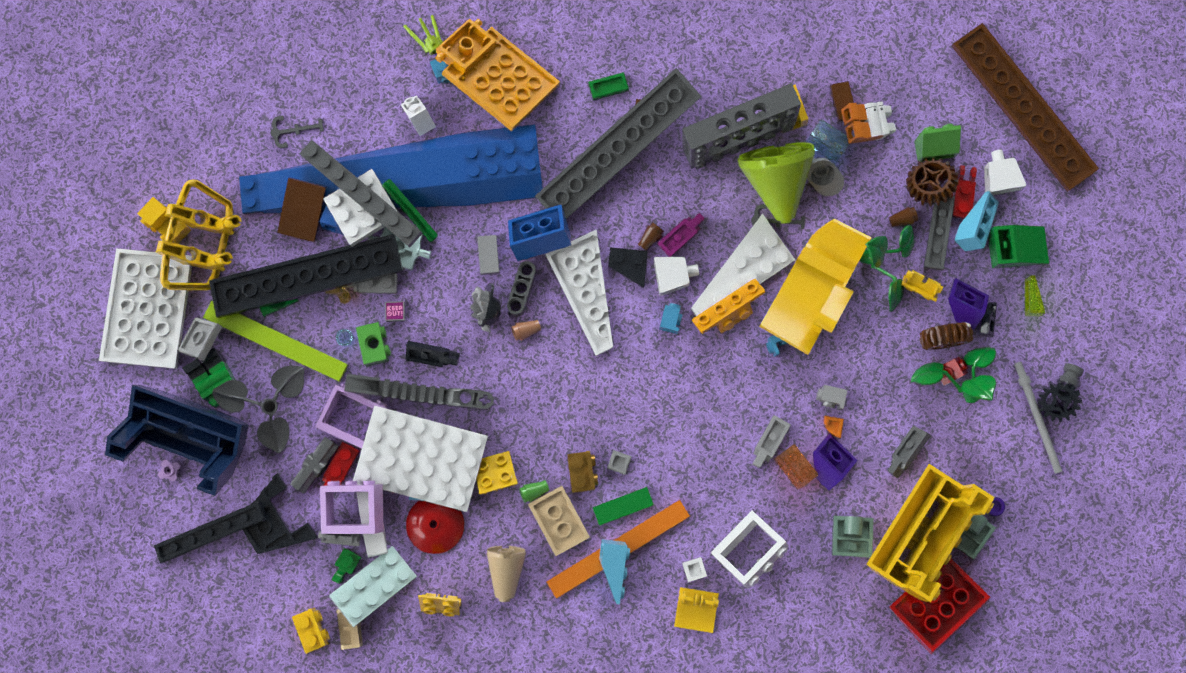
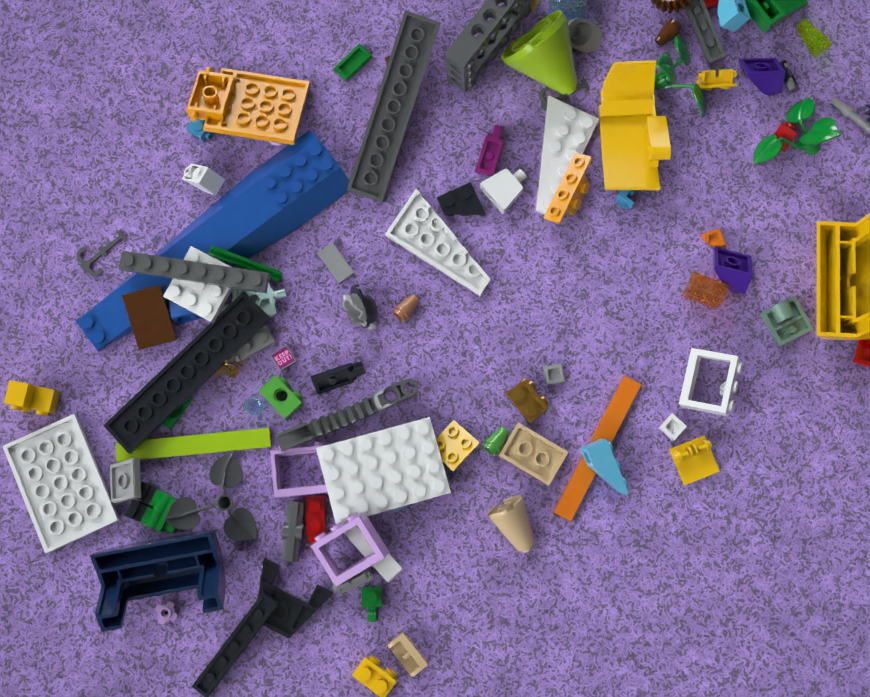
camera: 30 degrees left, 0 degrees up
(210, 223) = (72, 376): yellow piece -> none
(372, 586) = (407, 606): light aqua plate -> none
(431, 41) = (178, 109): lime plant -> none
(431, 604) = (483, 584): yellow hinge -> none
(438, 539) = (435, 534): red dish -> none
(521, 279) = (378, 267): dark grey beam -> none
(539, 233) = (369, 219): blue slope -> none
(623, 506) = (579, 409): green tile -> none
(650, 236) = (465, 168): reddish brown cone -> none
(671, 318) = (525, 227): dark azure brick -> none
(770, 440) = (670, 281): light grey hinge -> none
(832, 397) = (699, 214): light grey brick -> none
(908, 451) = (788, 223): dark grey hinge -> none
(946, 336) = (764, 108): reddish brown gear -> none

